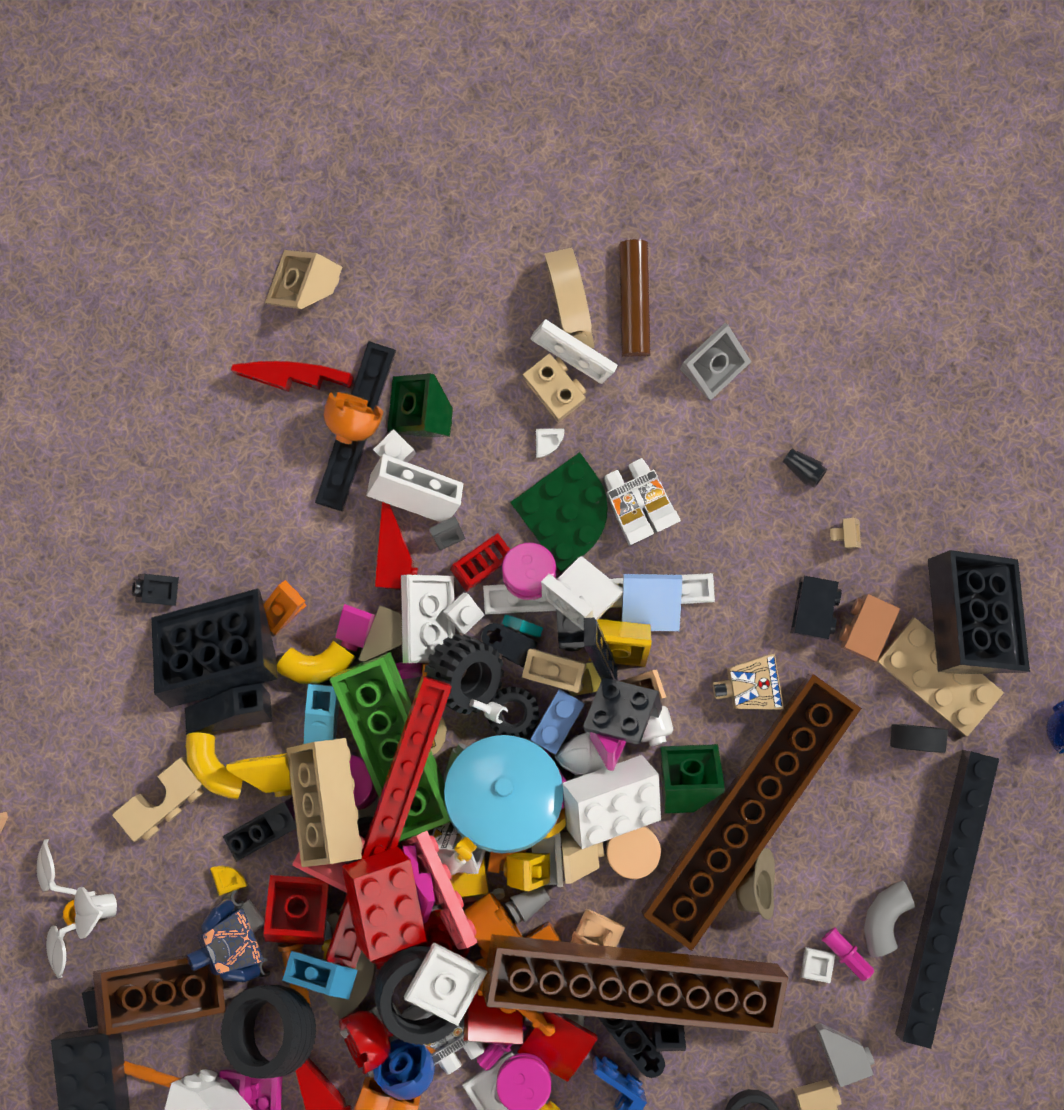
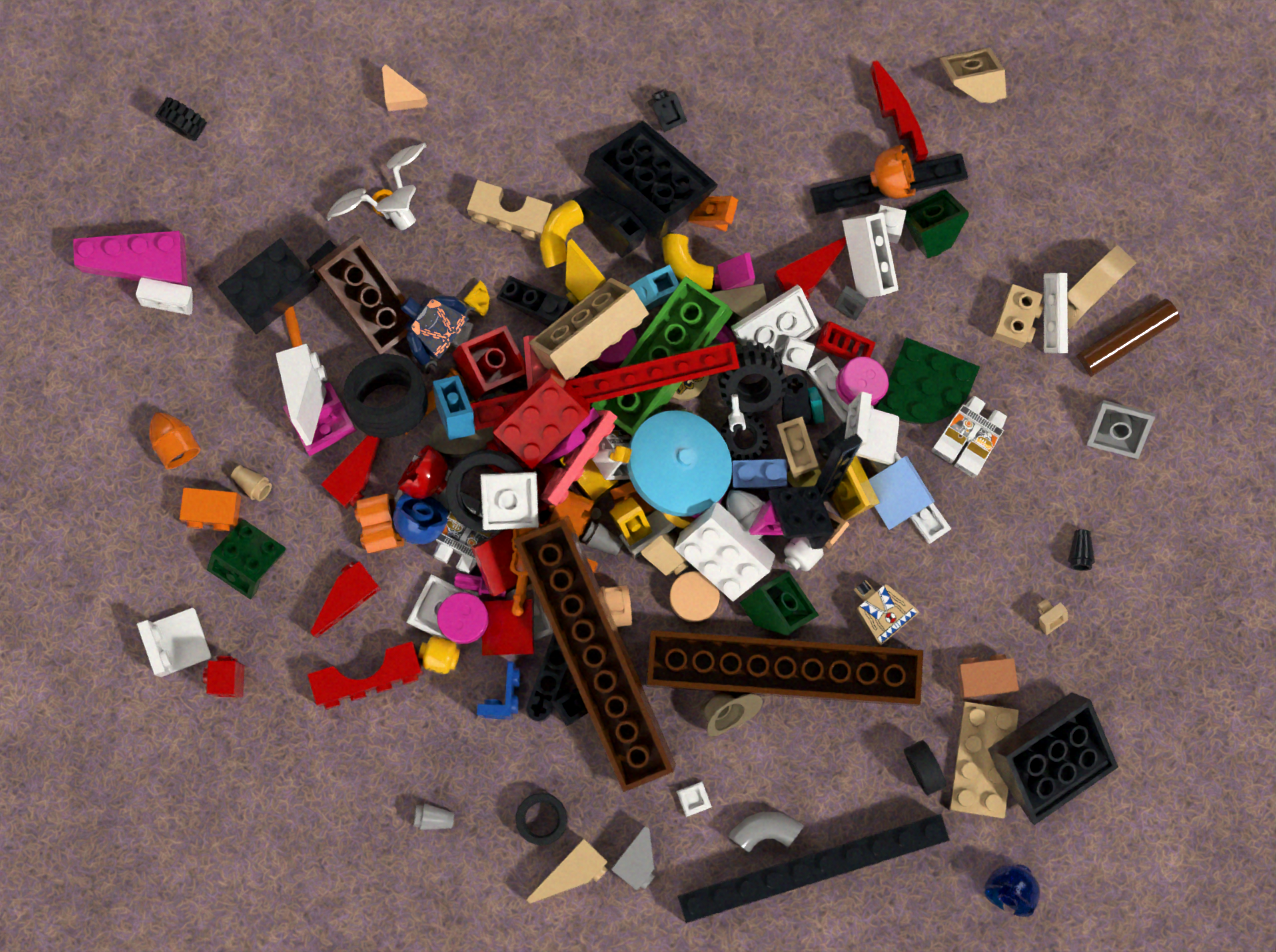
camera: 55 degrees right, 5 degrees down
(547, 441) = (972, 338): white tile -> none
(815, 607) = (976, 624): black brick -> none
(848, 954) = (717, 817): dark pink axle -> none

